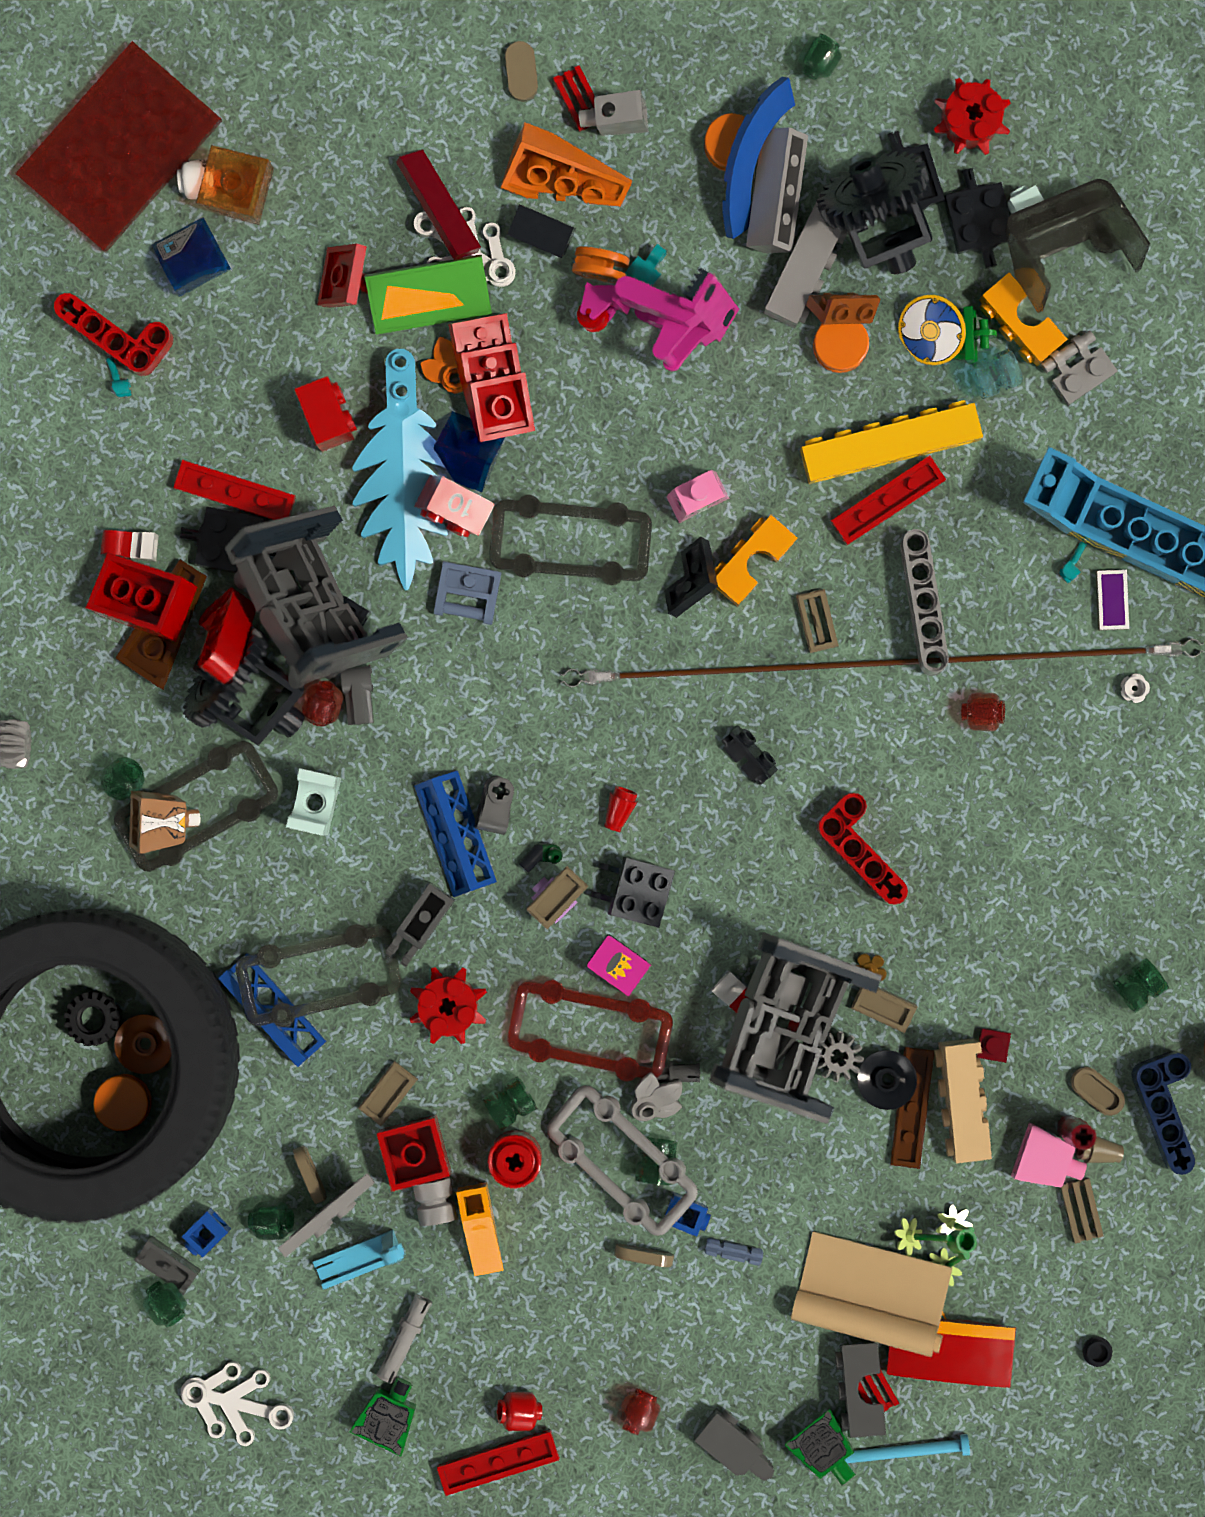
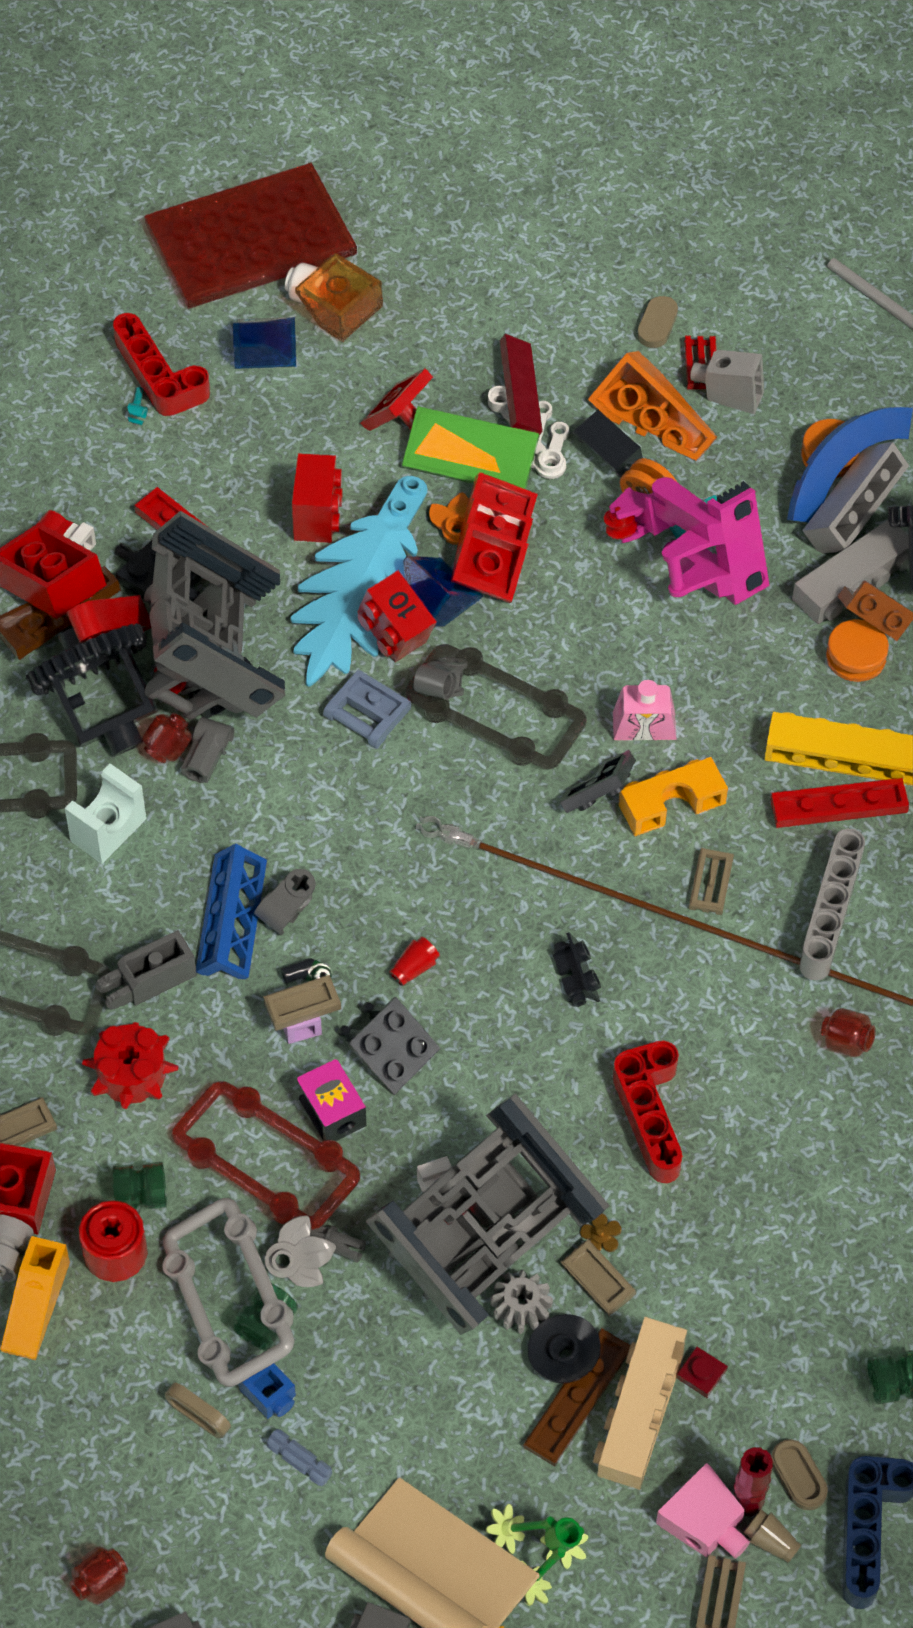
camera: 25 degrees right, 30 degrees down
(519, 542) = (441, 678): none -> dark grey piece

